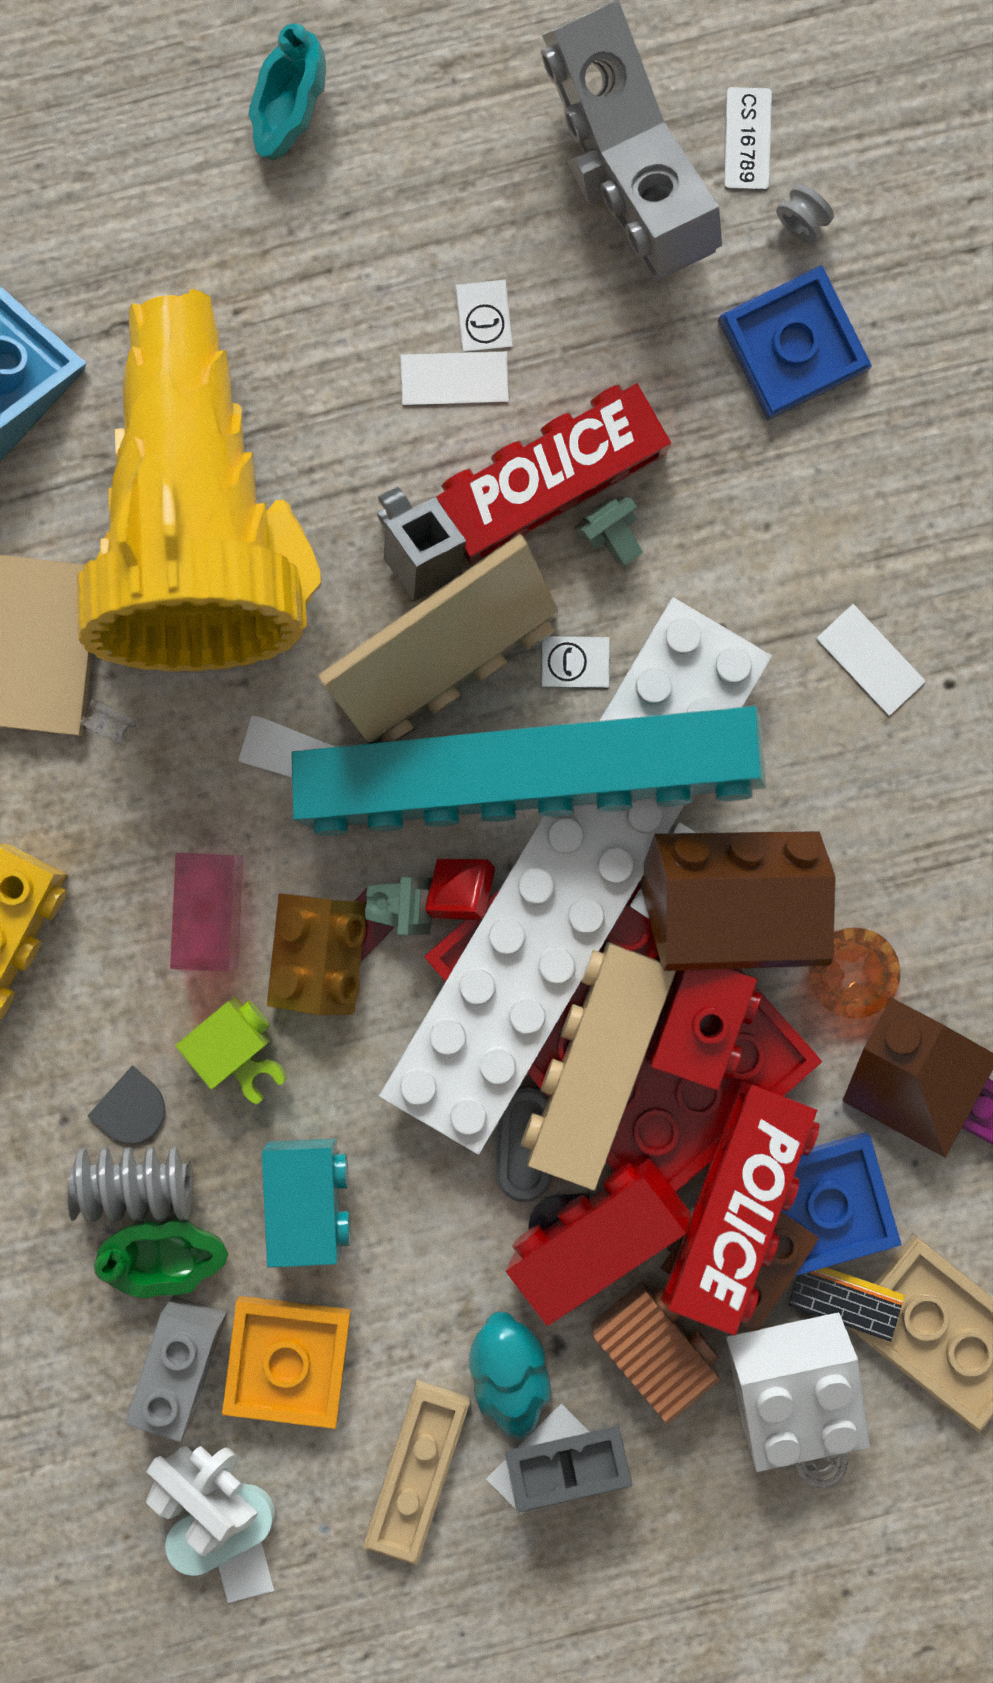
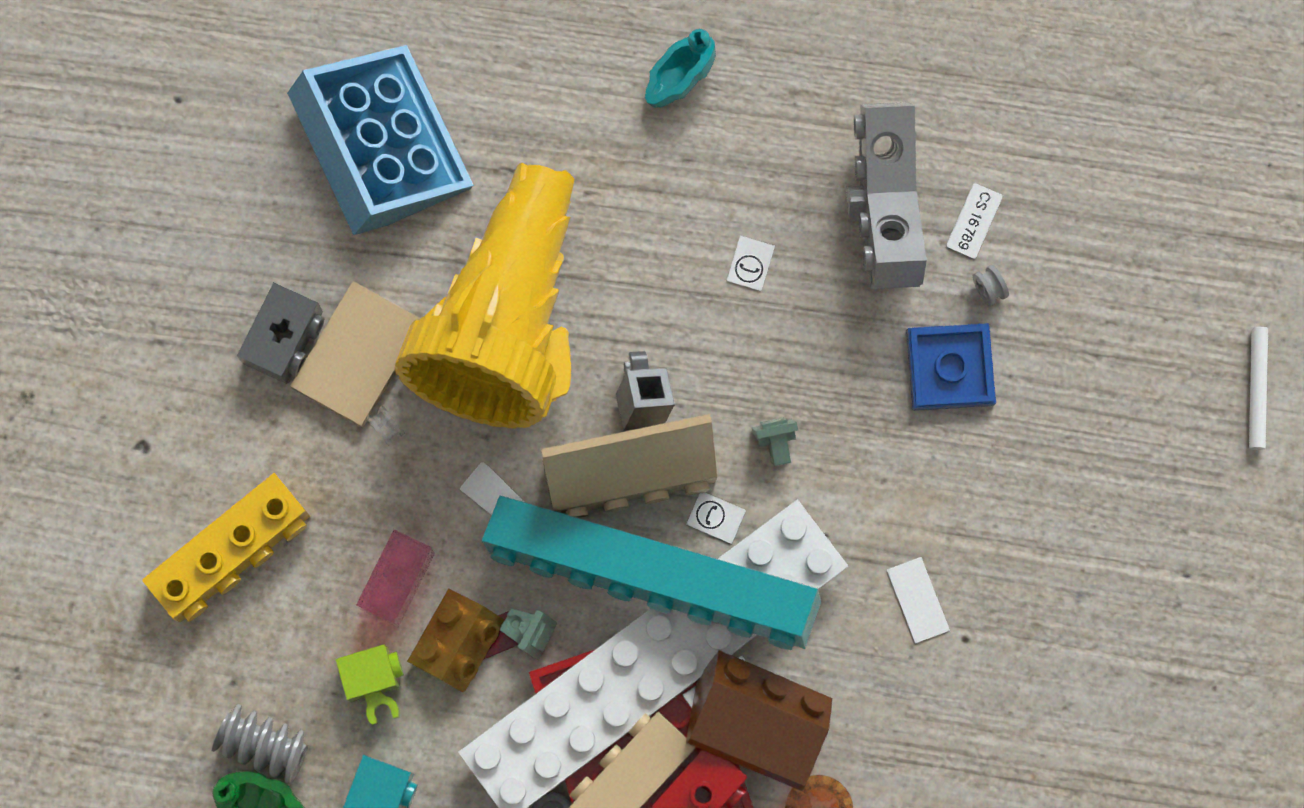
camera: 15 degrees right, 10 degrees down
(130, 1109) = (282, 694): dark grey piece -> none
(454, 378) = (713, 295): white sticker -> none
(460, 889) = (572, 636): red tile -> none
(555, 471) = (754, 384): red brick -> none

